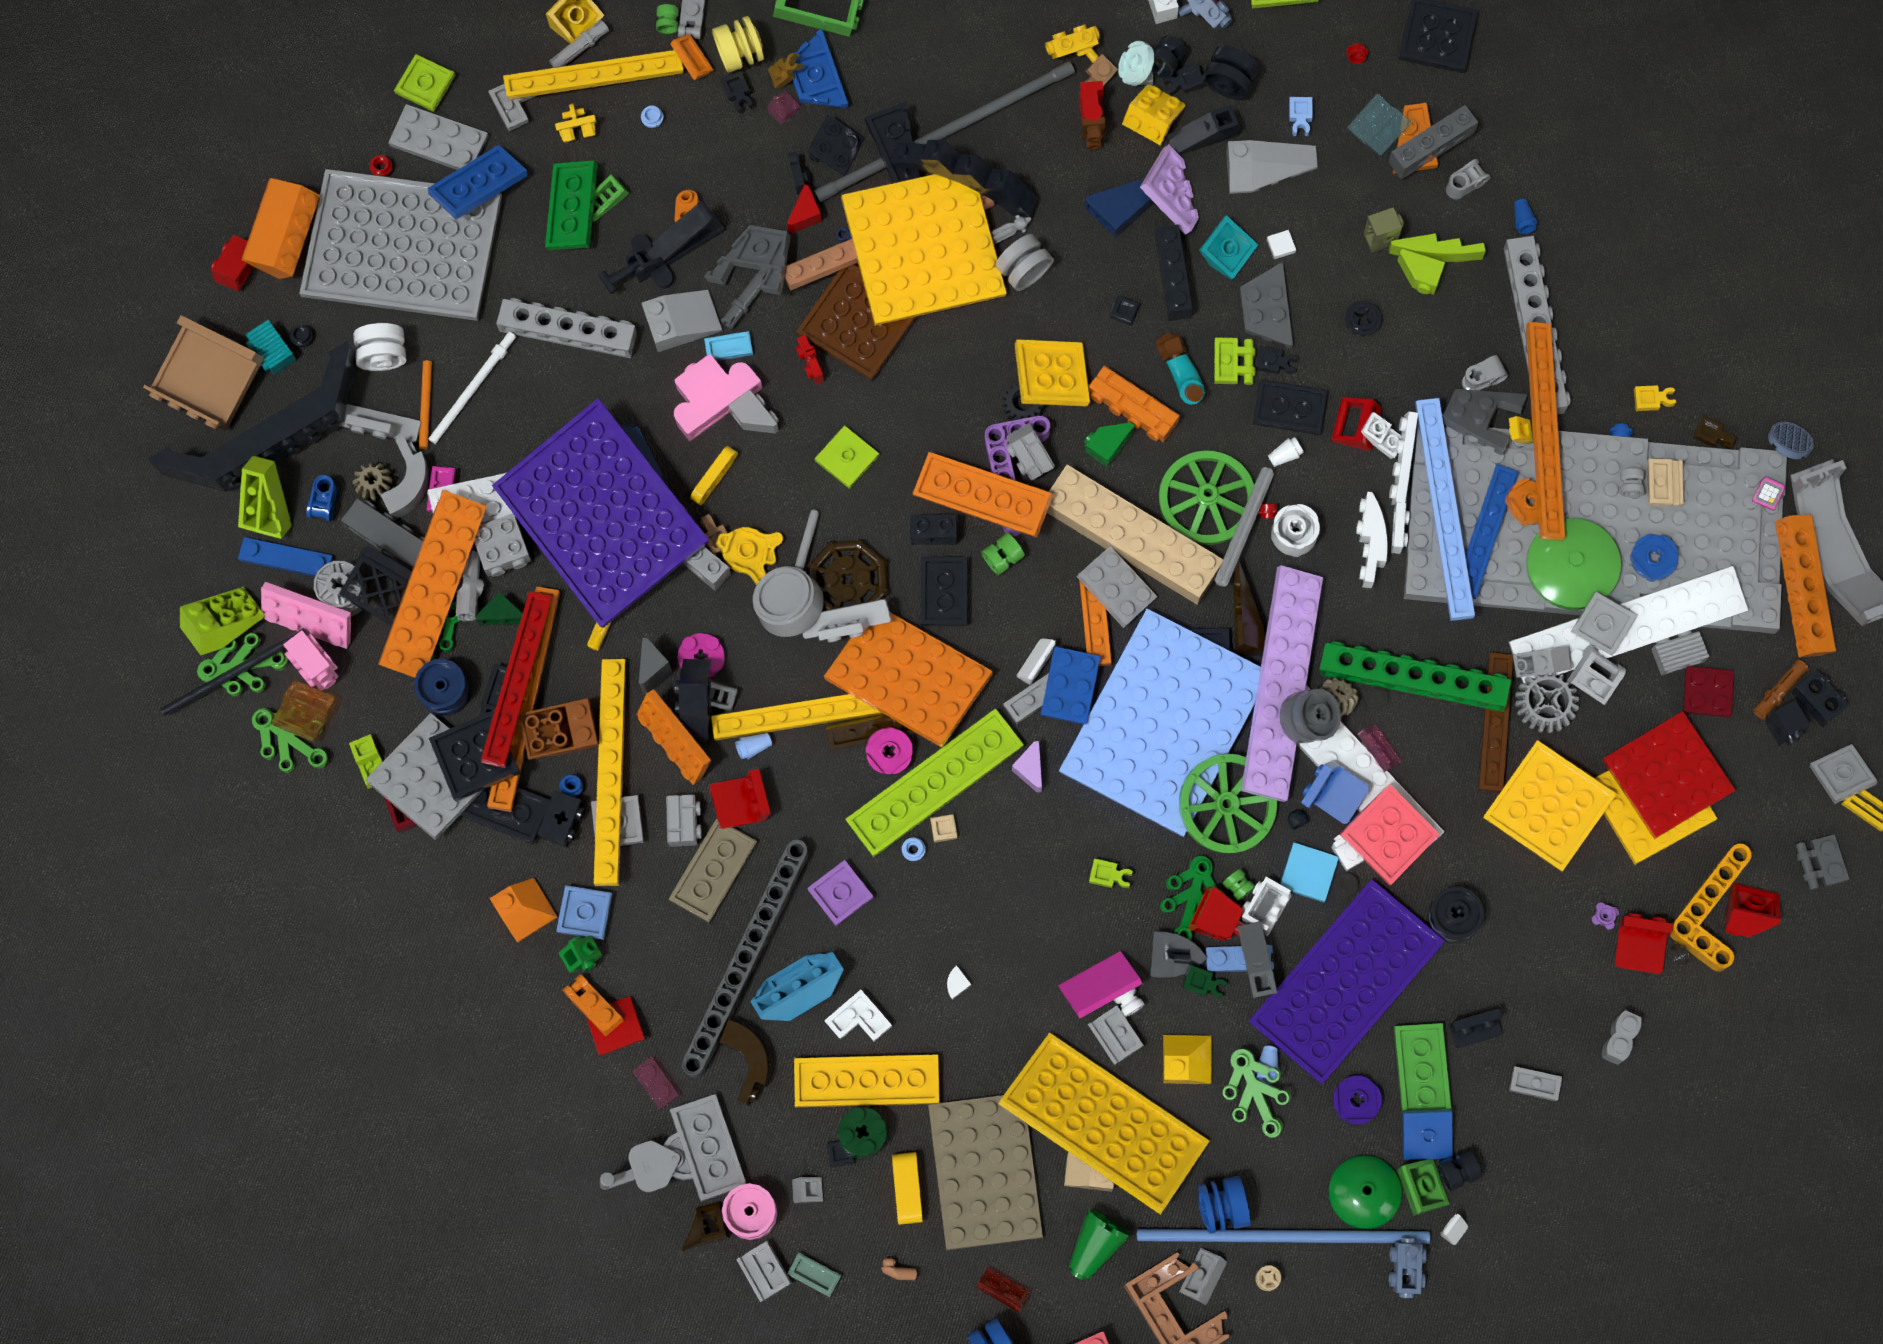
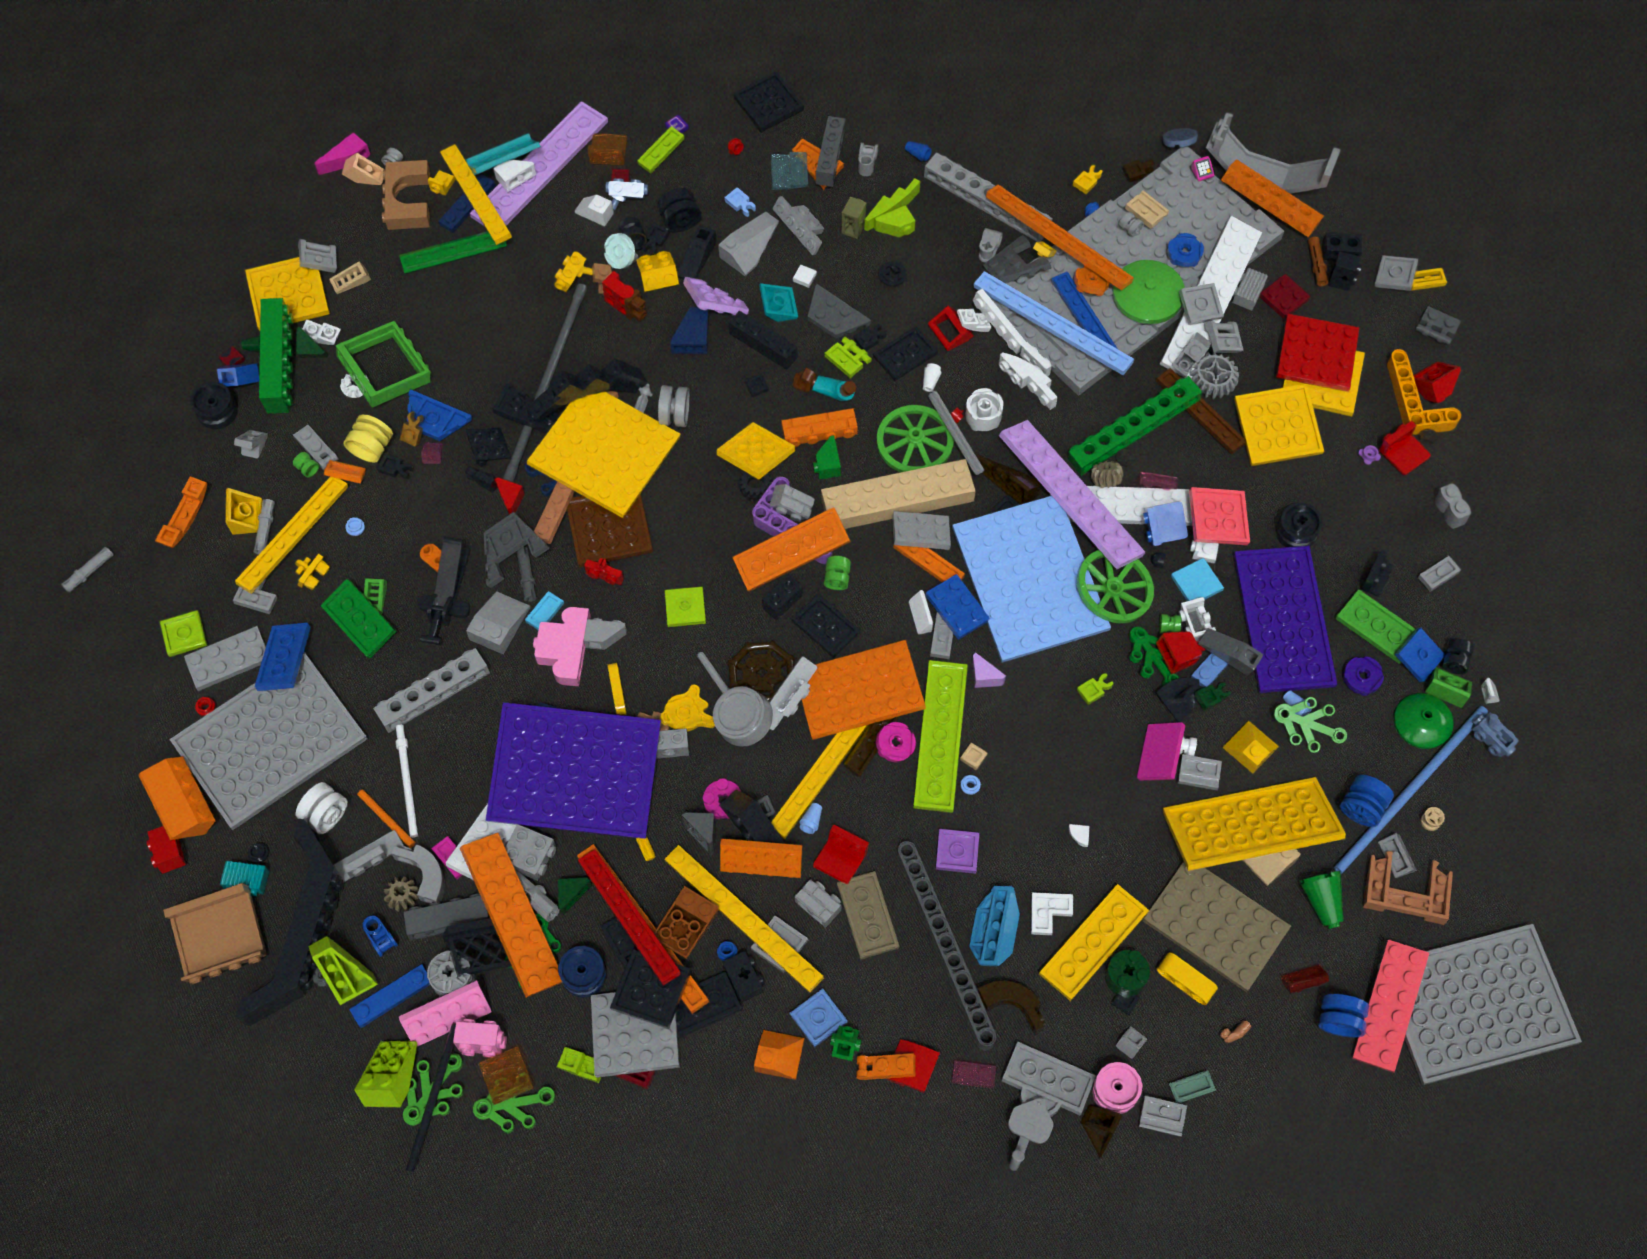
camera: 50 degrees left, 10 degrees down
(1310, 716) = (1109, 492): dark grey wheel -> none
(1334, 189) = (801, 223): none -> light grey bracket

